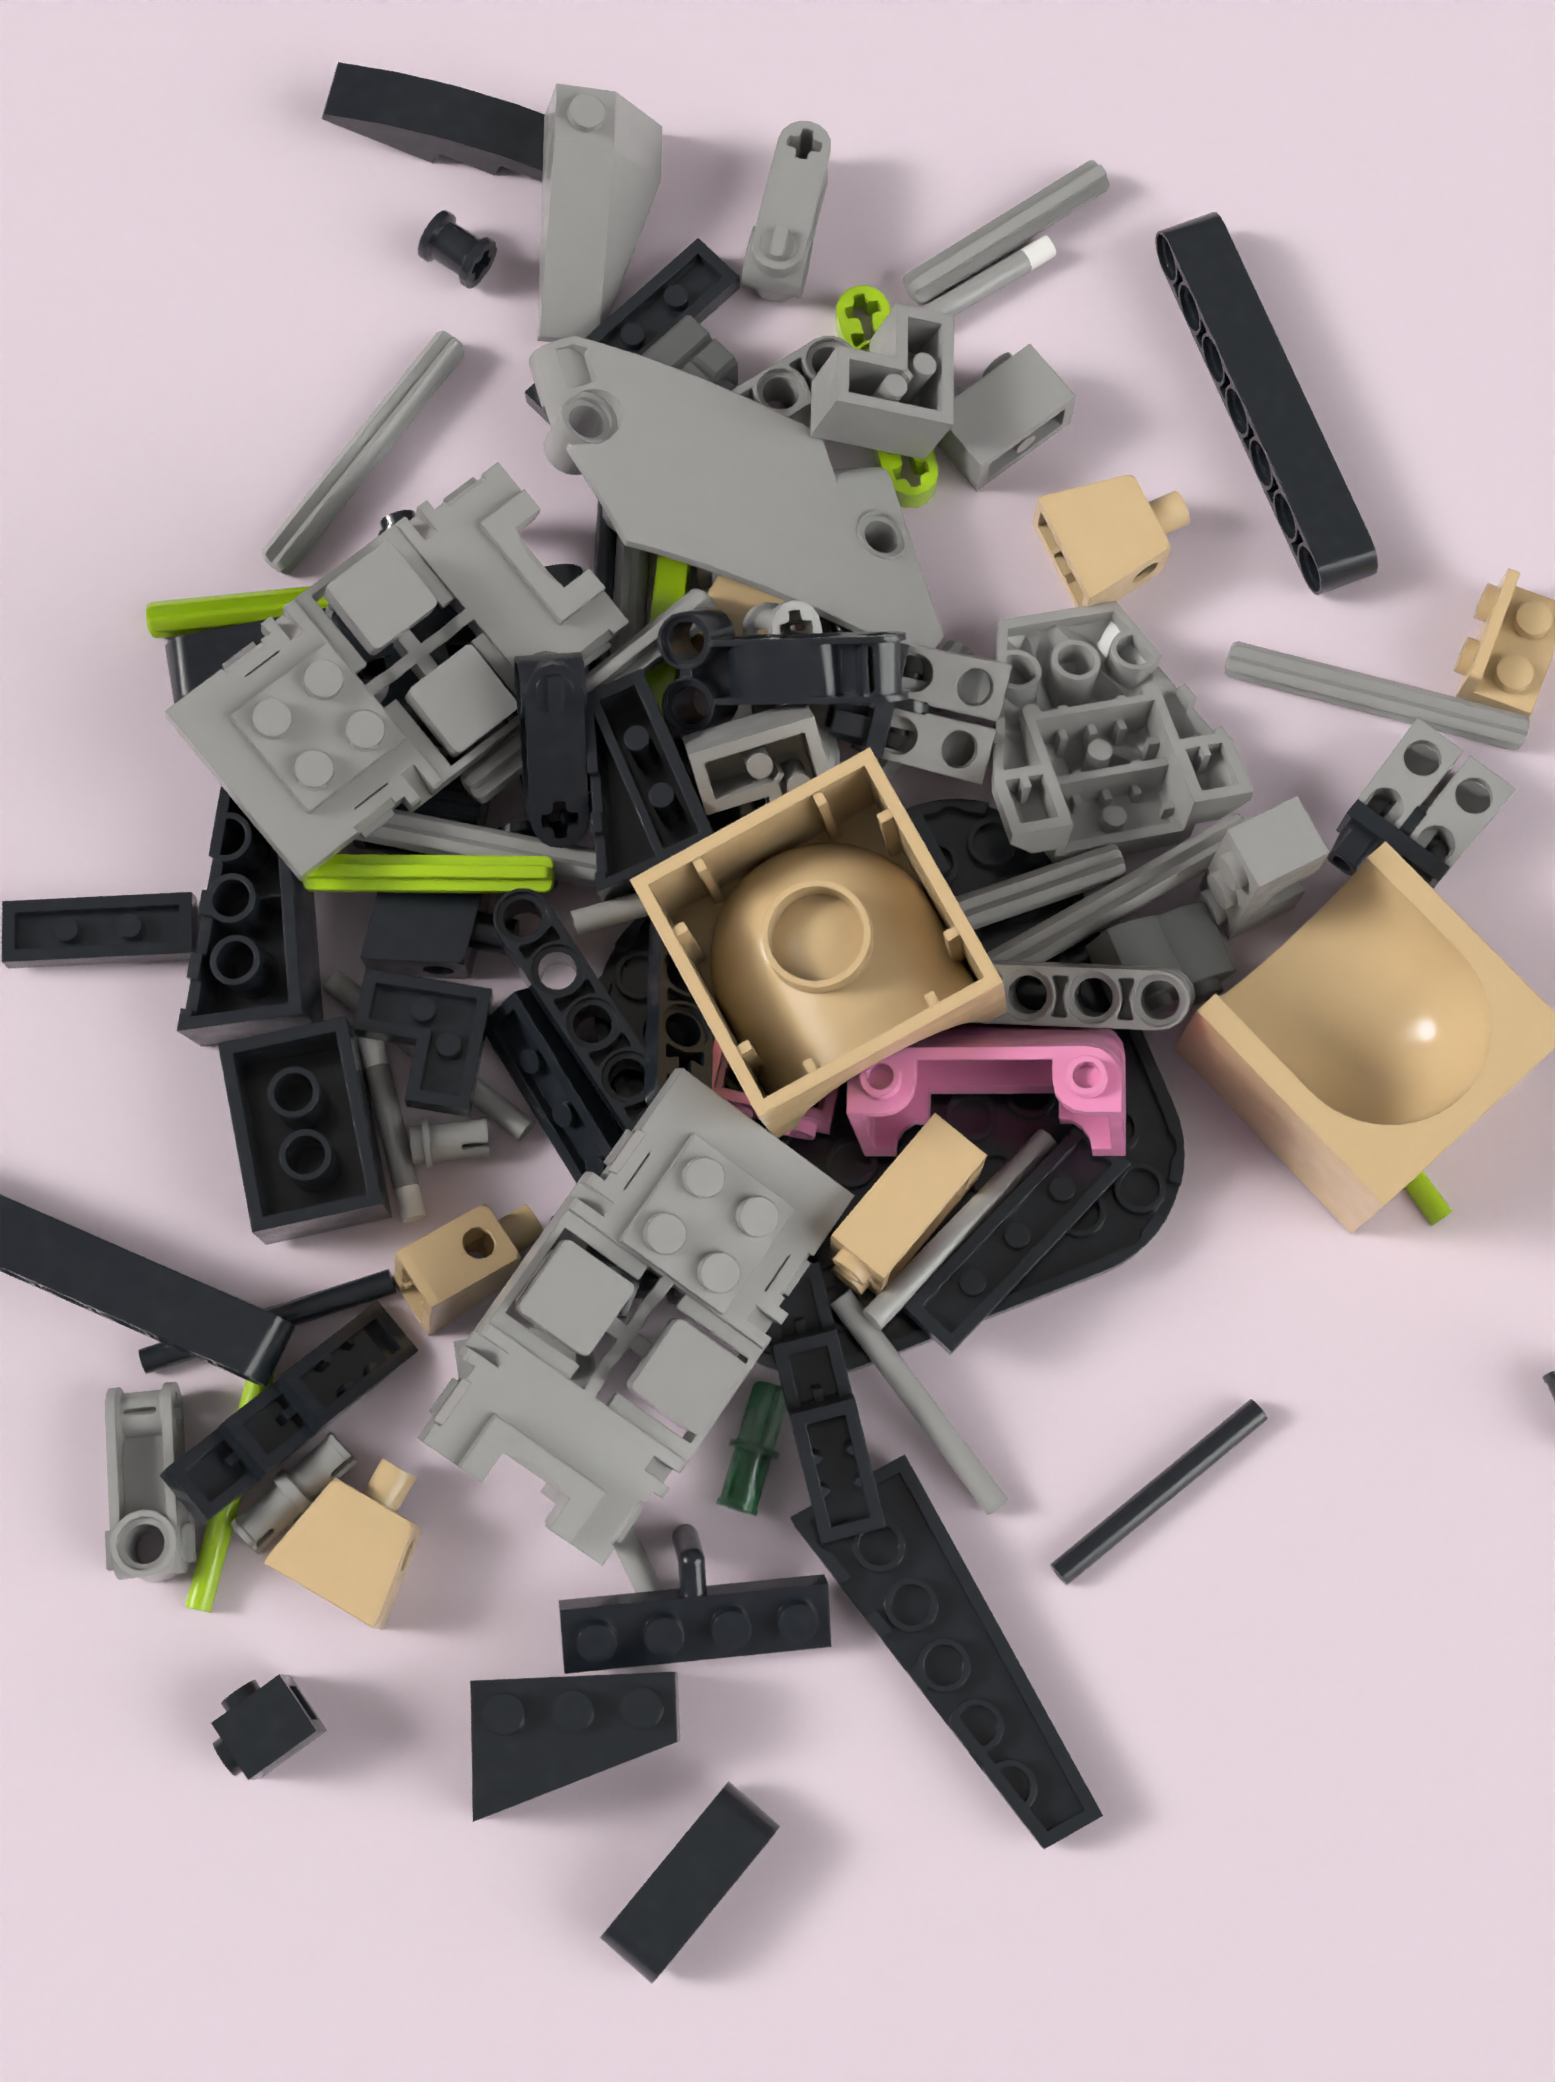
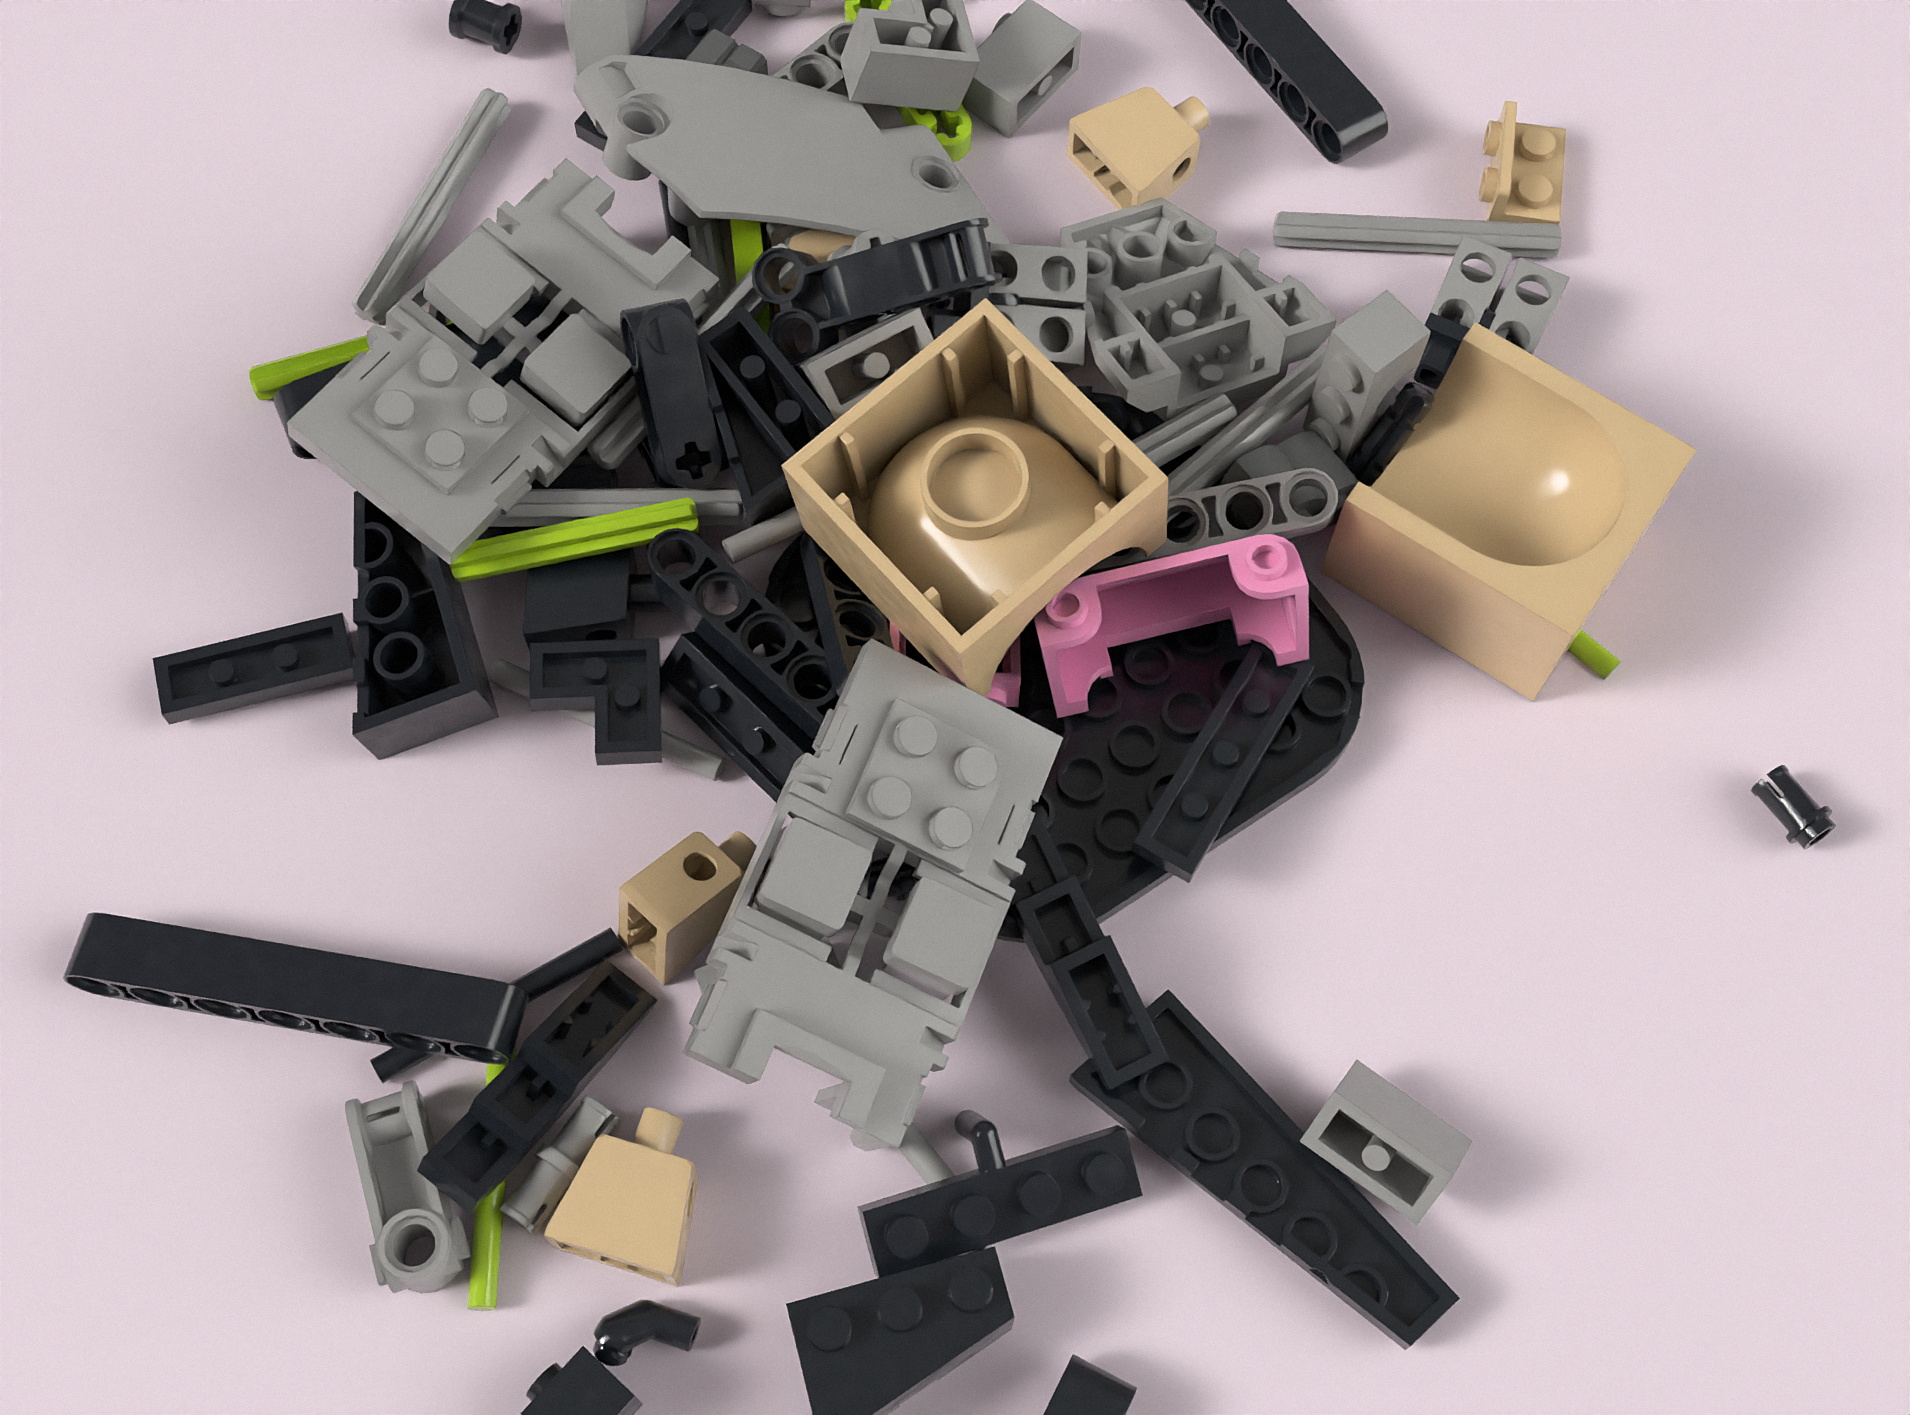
camera: 15 degrees left, 10 degrees down
(304, 1131) = (500, 807): black brick -> none
(338, 1658) = (638, 1323): none -> black arm
(392, 1130) = (586, 795): light grey bar -> none
(449, 1141) = (645, 793): light grey pin -> none
(754, 1449) = (1016, 1021): clear green axle -> none
(905, 1207) = (1113, 743): tan window -> none
(919, 1402) = (1169, 936): light grey bar -> none
(958, 1229) = (1165, 764): light grey bar -> none
(1073, 1653) = (1387, 1142): none -> light grey brick
(1158, 1492) = (1424, 971): black piece -> none
(1278, 925) = (1390, 433): none -> black axle

